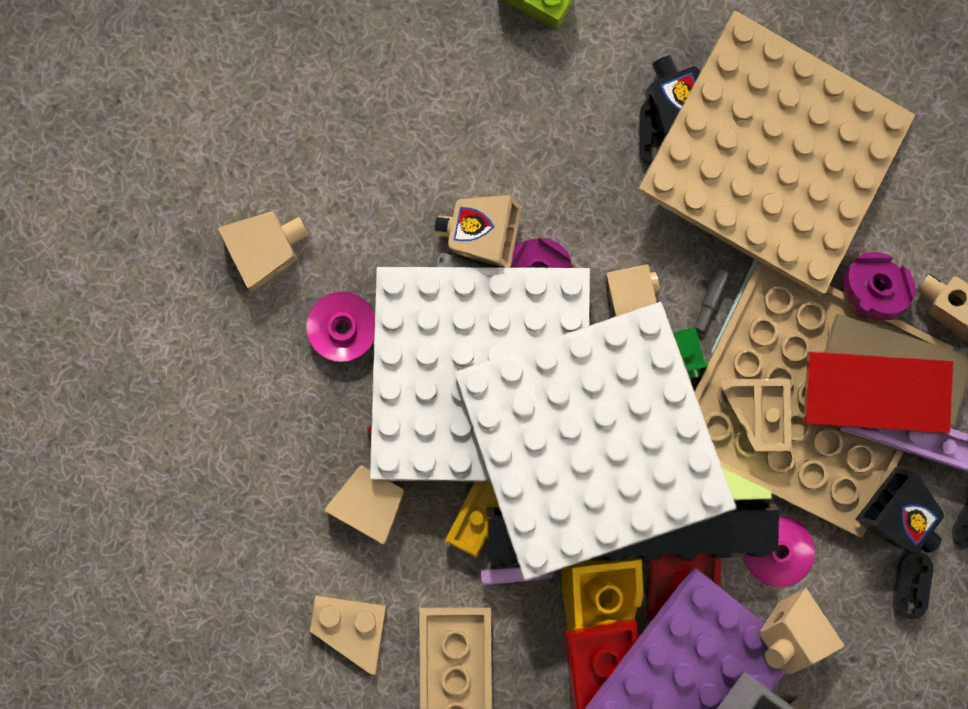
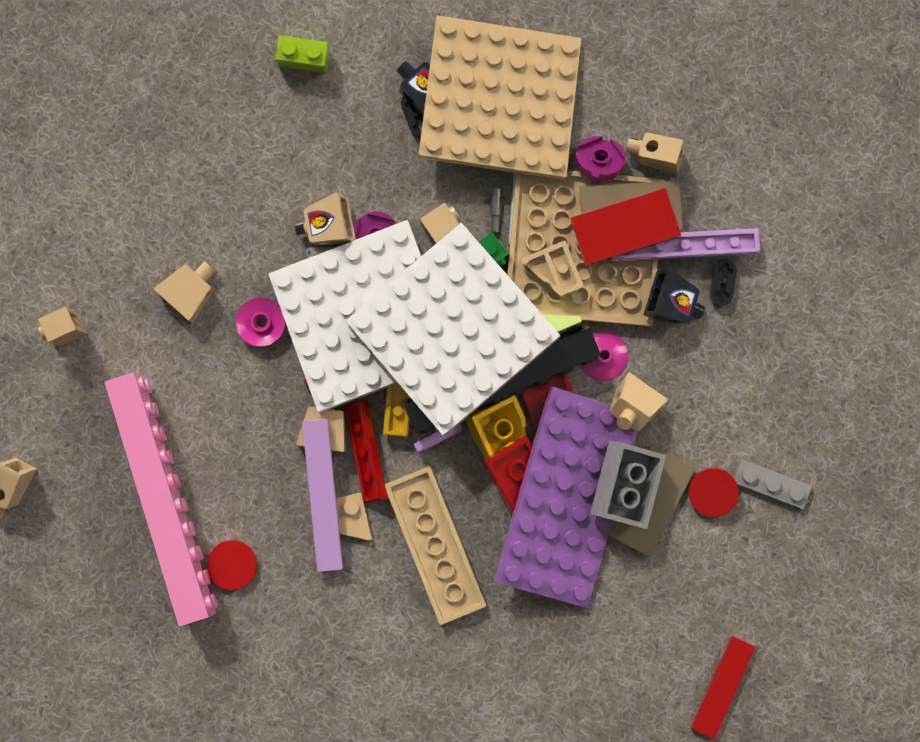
camera: 25 degrees left, 0 degrees up
(77, 231) = (61, 327): none -> tan brick
(118, 513) = (161, 498): none -> bright pink brick
(177, 634) = (232, 564): none -> red tile
(333, 591) = (322, 495): none -> lavender tile
(413, 554) = (365, 451): none -> red tile
(921, 587) = (704, 343): black beam -> none

